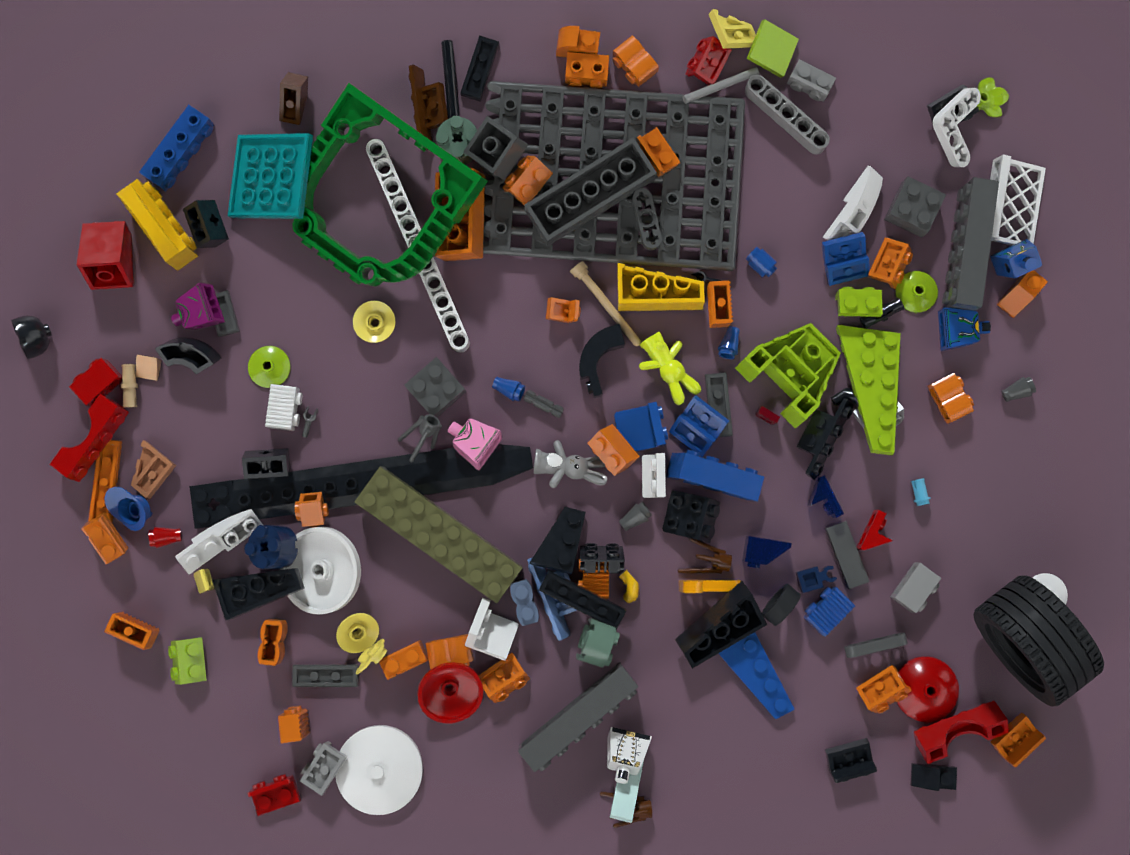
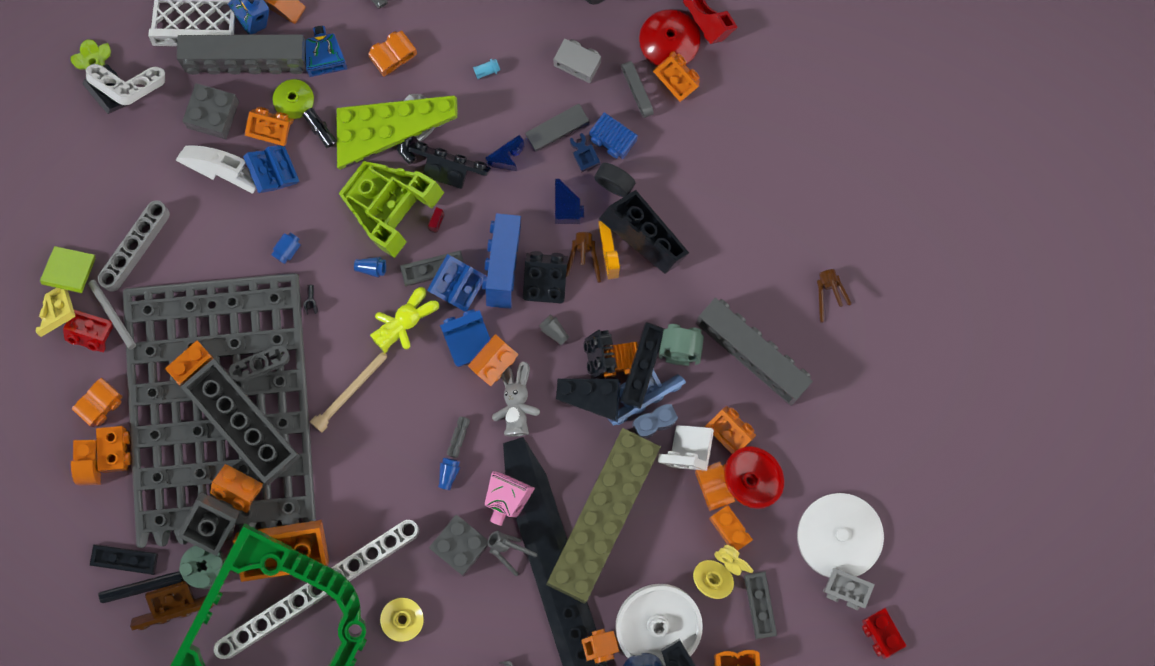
camera: 100 degrees left, 5 degrees down
(293, 724) = (812, 624): orange brick -> none
(563, 310) = (362, 432): orange bracket -> none
(599, 344) = (402, 397): black arch -> none
(625, 798) = (811, 295): light aqua tile -> none
(626, 752) = (779, 302): white torso -> none
(632, 587) = (623, 322): yellow arm -> none
(653, 476) = (511, 318): white bracket -> none
(656, 291) = (330, 352): yellow wedge -> none
(719, 304) = (334, 281): orange brick -> none
(755, 670) = (684, 192): blue wing -> none
(811, 81) = (95, 228): light grey bracket -> none
(850, 760) = (747, 96): black bracket -> none
(859, 302) = (313, 149): lime bracket -> none
(870, 536) = (536, 108): red slope -> none
(933, 776) = (748, 21): black slope -> none

